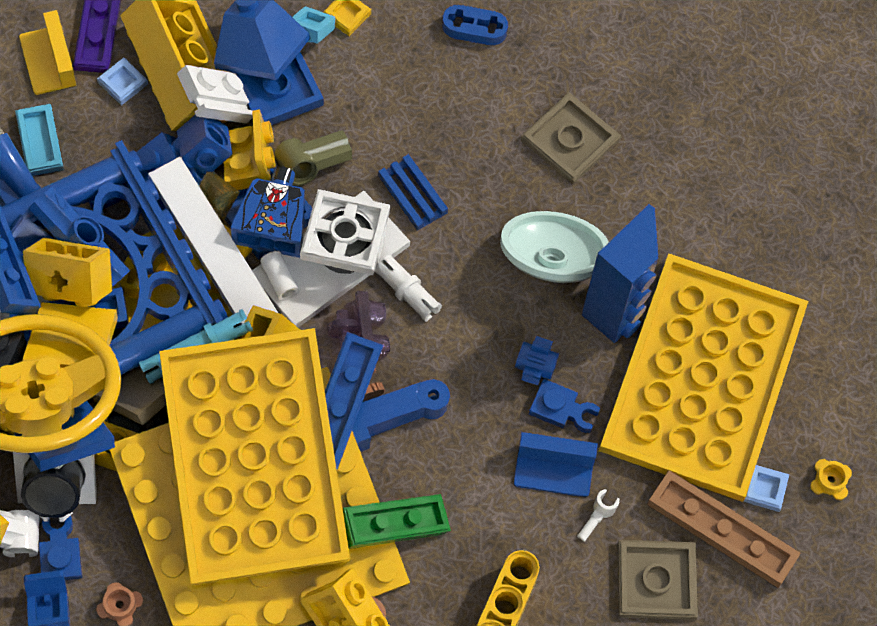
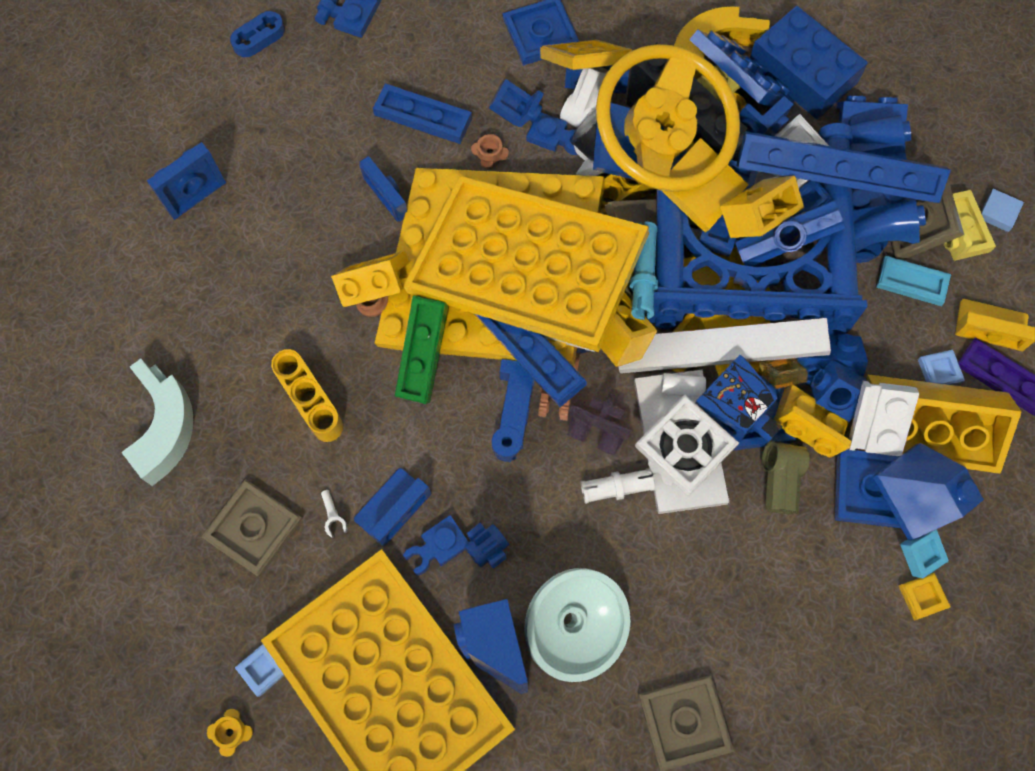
camera: 130 degrees right, 5 degrees up
(397, 169) = (737, 543): blue tile -> none
(475, 25) = (861, 714): blue beam -> none
(723, 529) = (249, 606): medium nougat plate -> none

